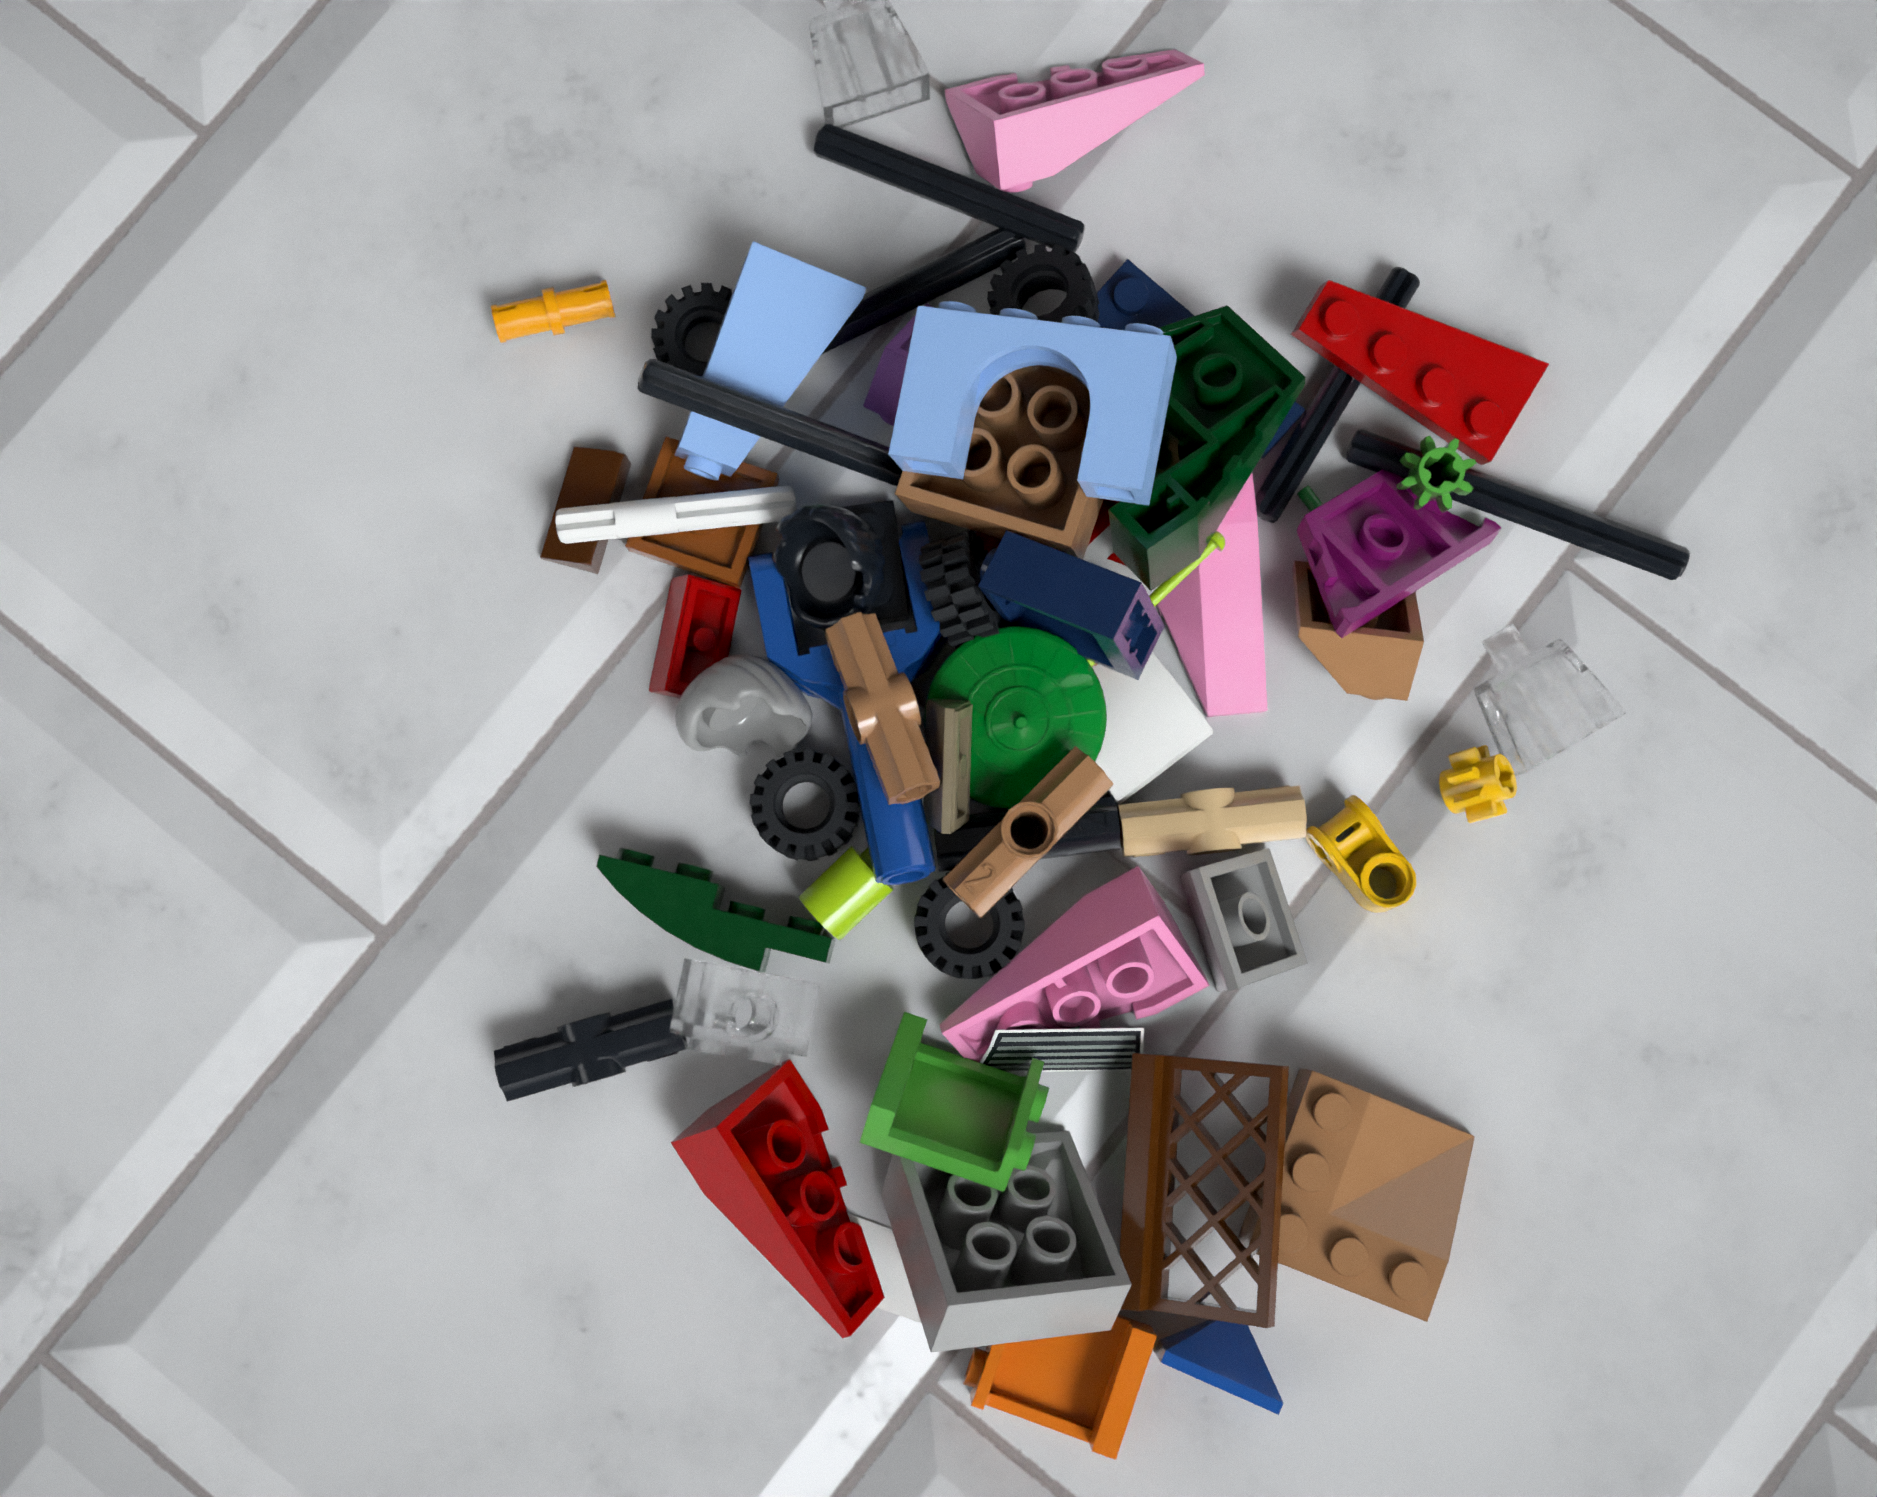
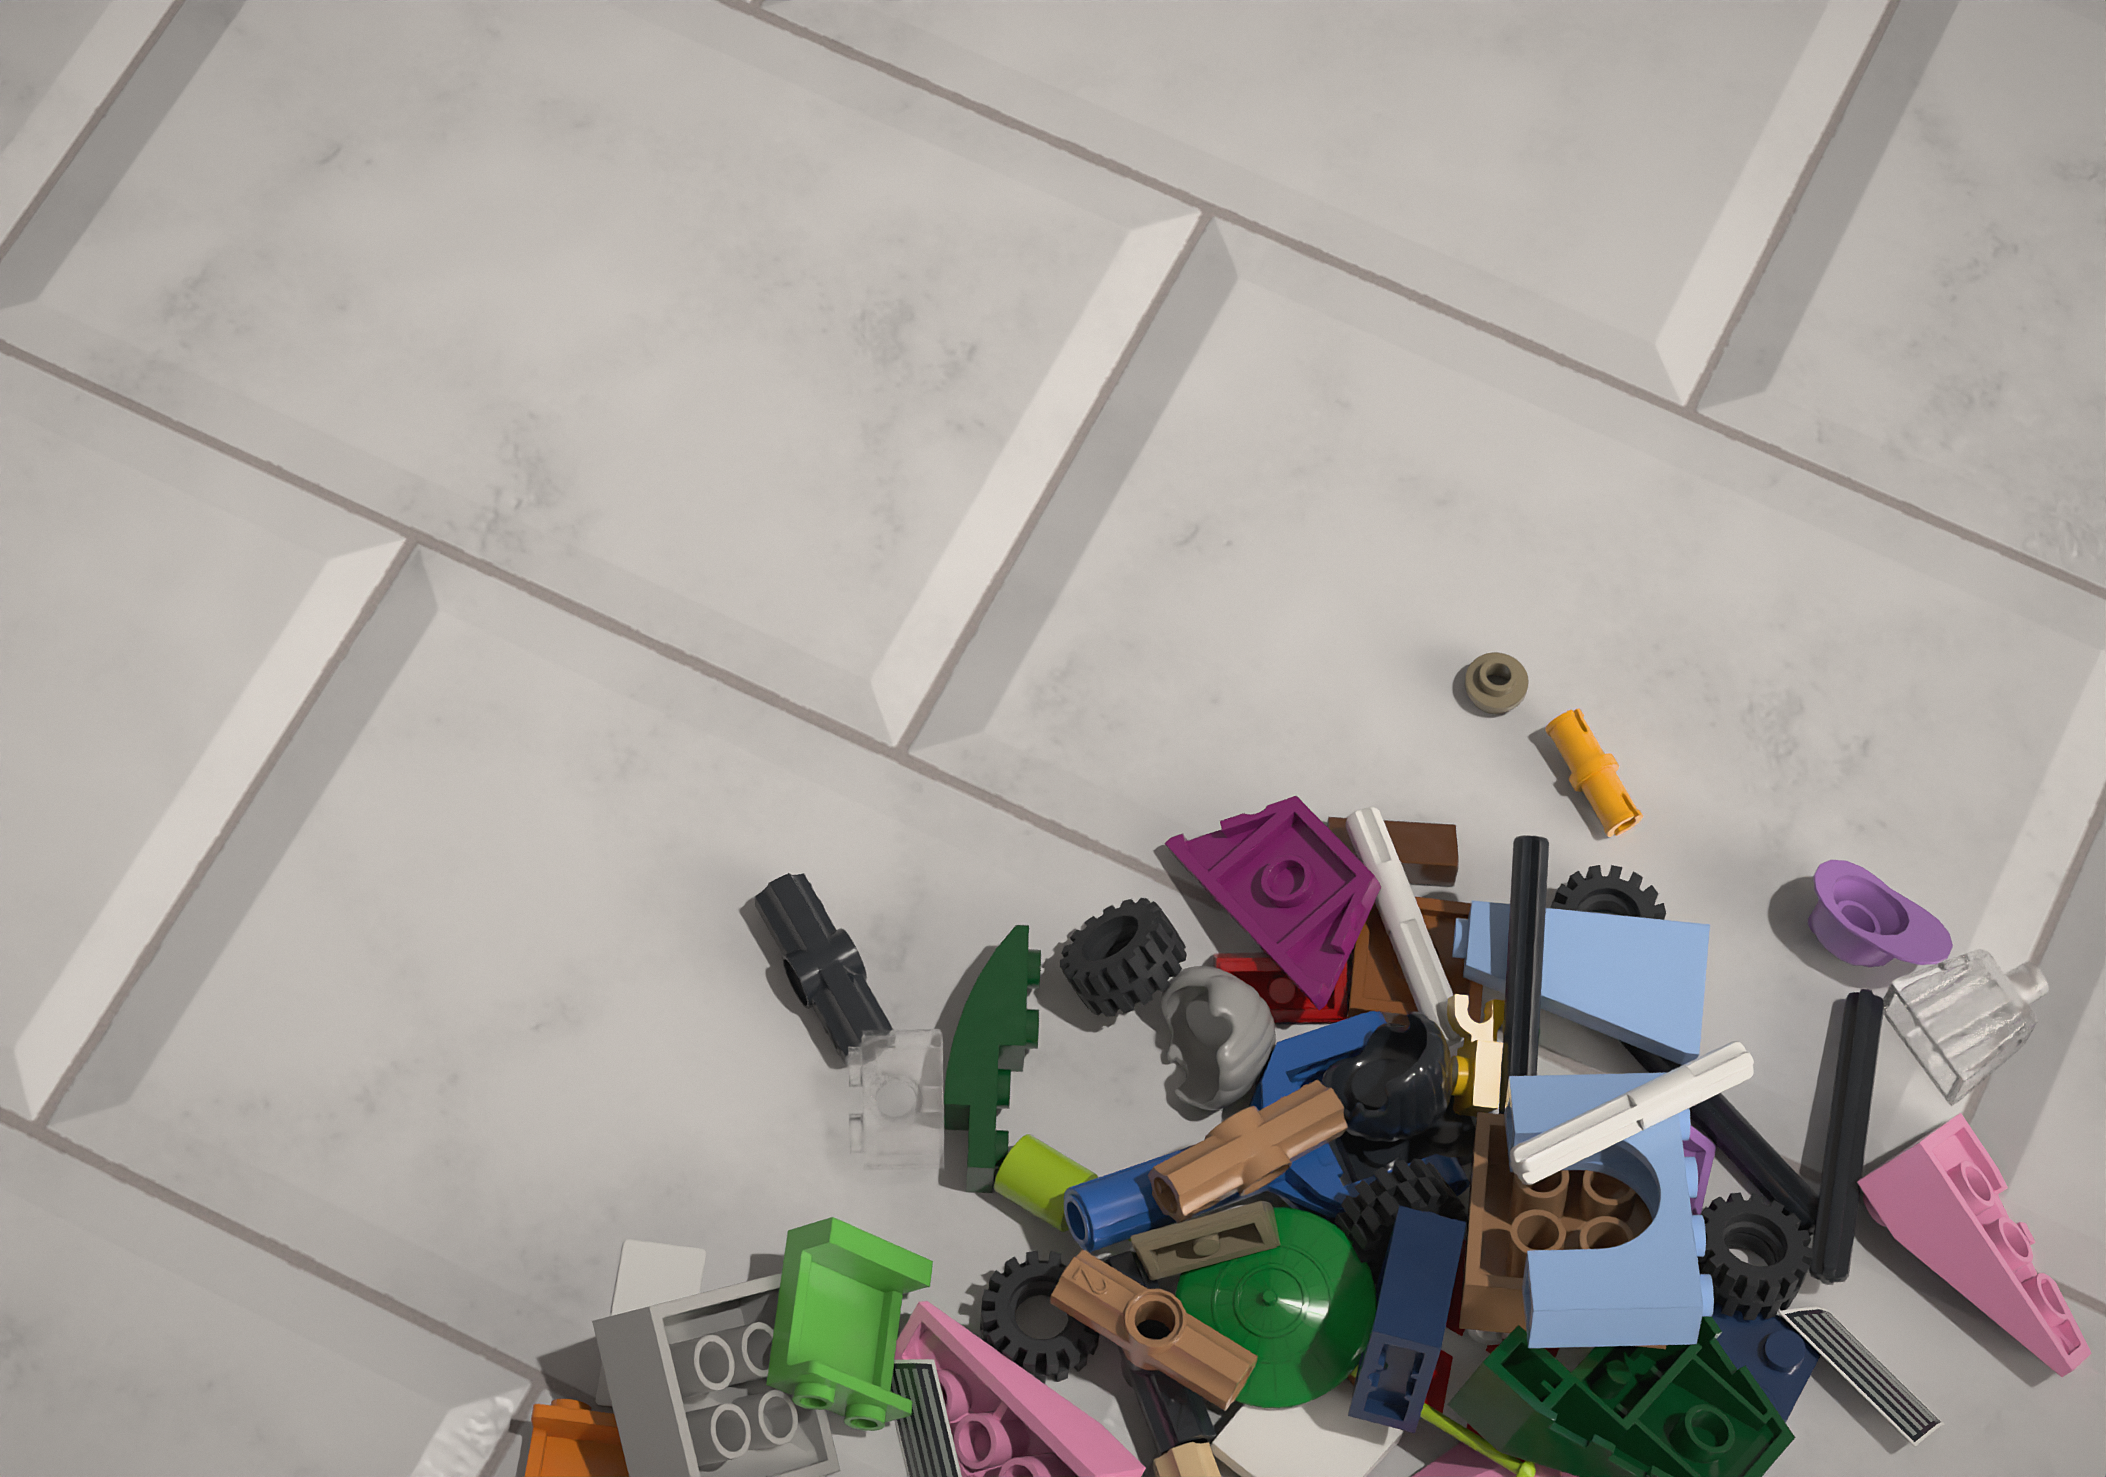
camera: 70 degrees right, 20 degrees down
(452, 386) = (1491, 697): none -> dark tan plate
(614, 611) = (1287, 889): none -> magenta wing
(669, 764) = (1123, 957): none -> black tyre
(756, 109) = (1870, 922): none -> medium lavender piece
(773, 1179) = (724, 1177): red wedge -> none
(779, 779) = (1120, 1090): black tyre -> none
(820, 481) = (1479, 1060): none -> yellow plate
(960, 351) = (1631, 1113): none -> white axle
(1159, 236) = (1864, 1372): none -> sticker

